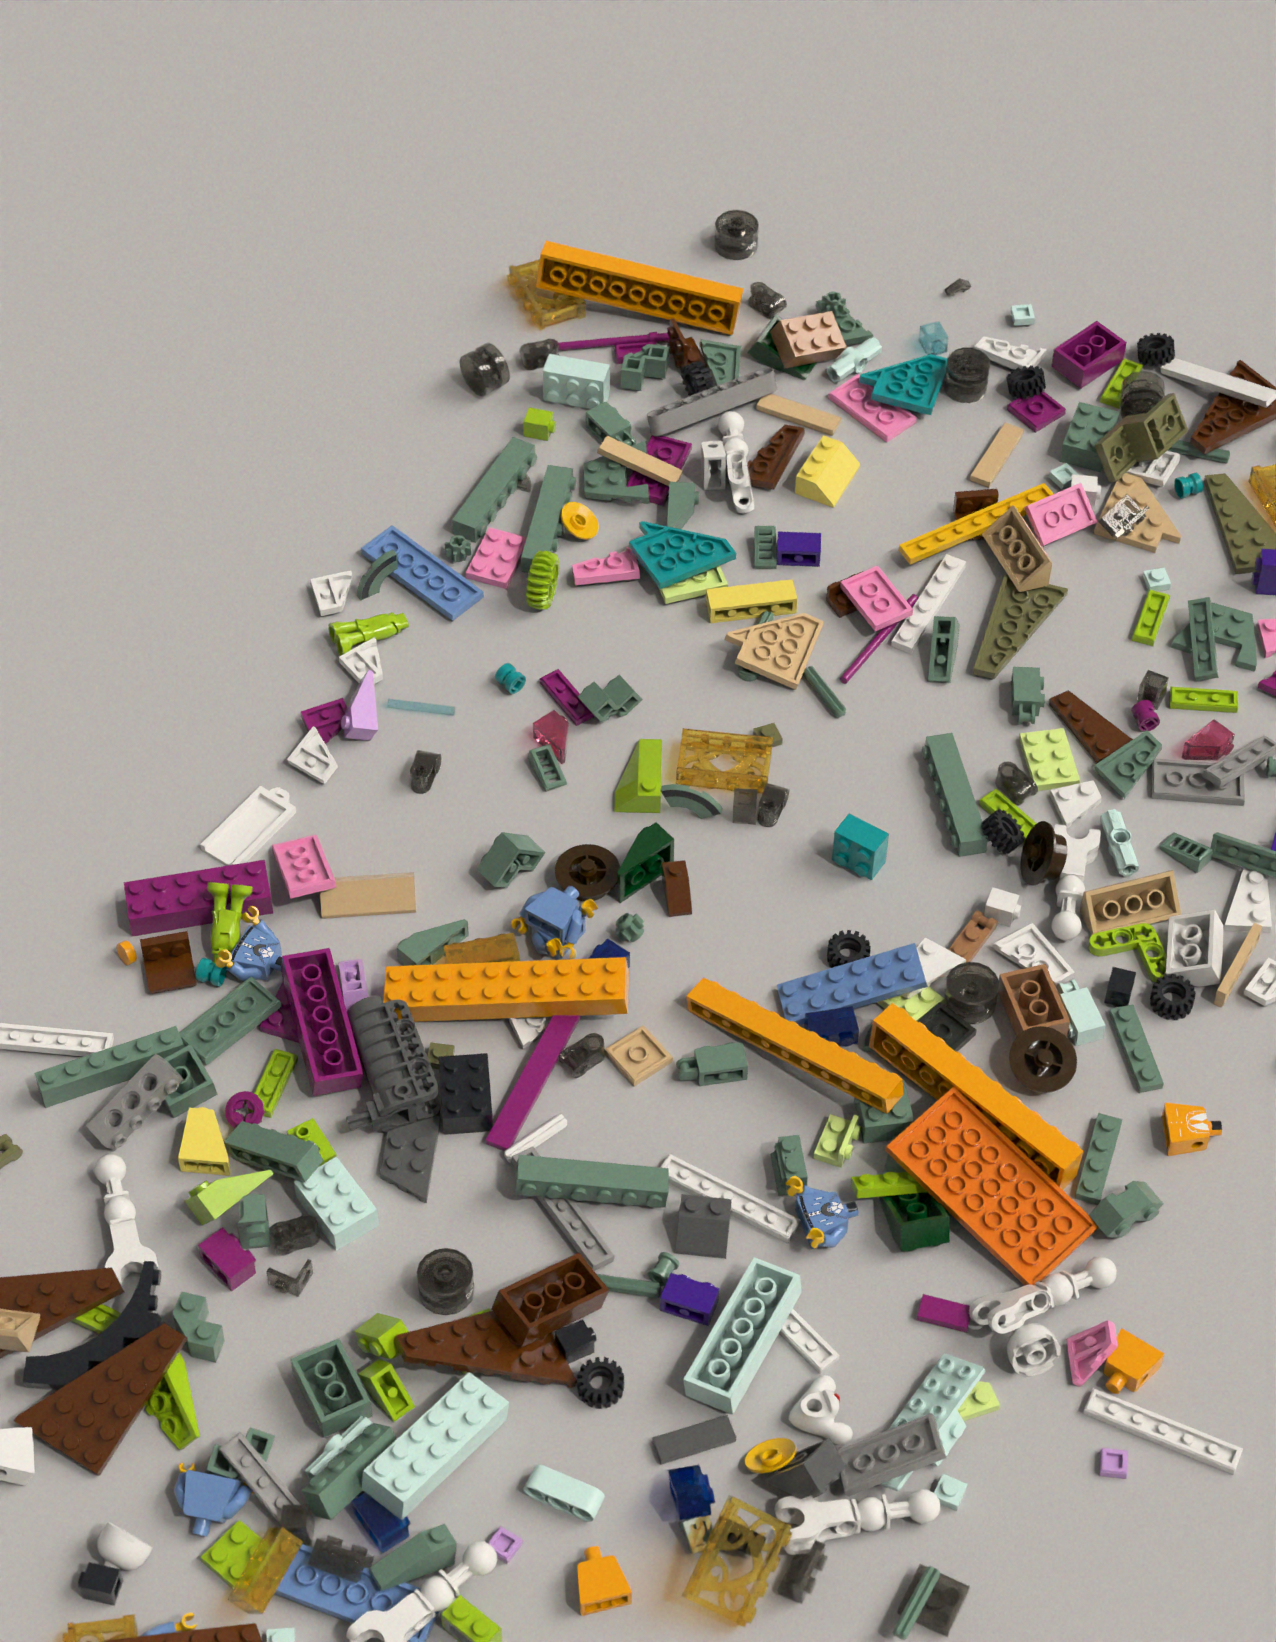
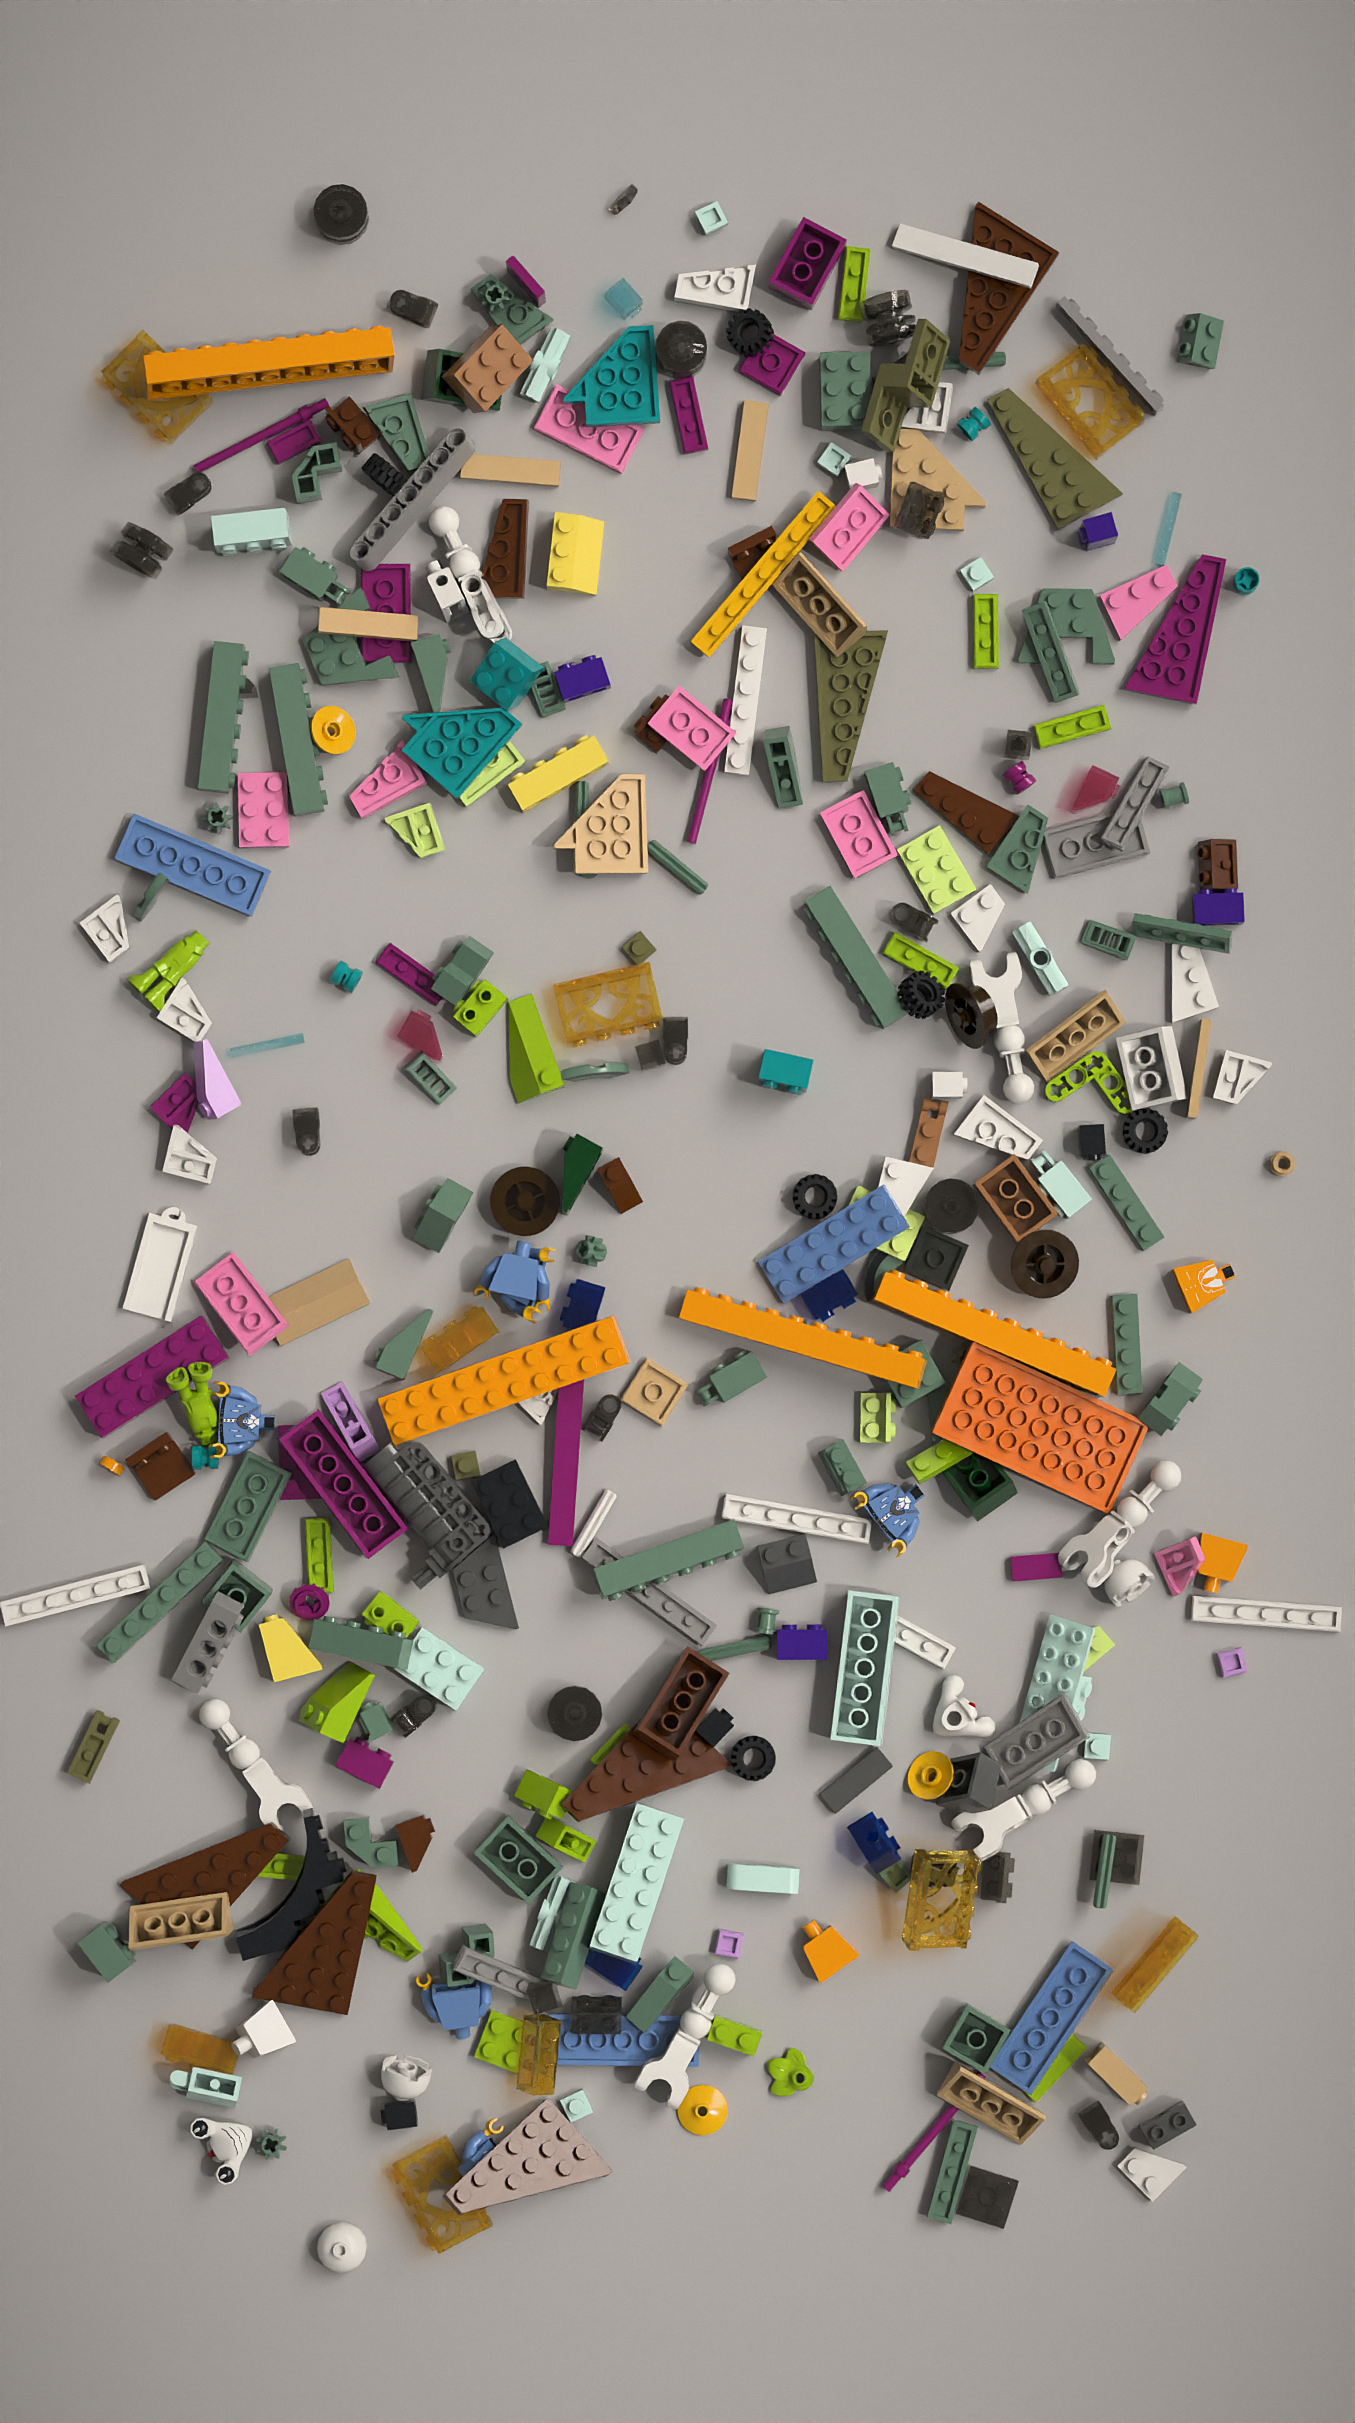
camera: 20 degrees left, 35 degrees up
(242, 1340) = (415, 1839): none -> reddish brown slope
(285, 1283) = (428, 1769): clear smoke bracket -> none
(539, 424) = (231, 601): lime brick -> none
(542, 580) = (330, 840): lime gear -> none
(613, 731) = (479, 1007): none -> lime brick
(618, 603) = (418, 829): none -> yellowish green wing
(738, 520) = (506, 674): none -> teal brick
(861, 302) = (526, 281): none -> magenta tile
(956, 422) = (688, 415): none -> magenta tile
(990, 714) = (858, 834): none -> bright pink plate
(1156, 349) = (873, 210): black tyre -> none

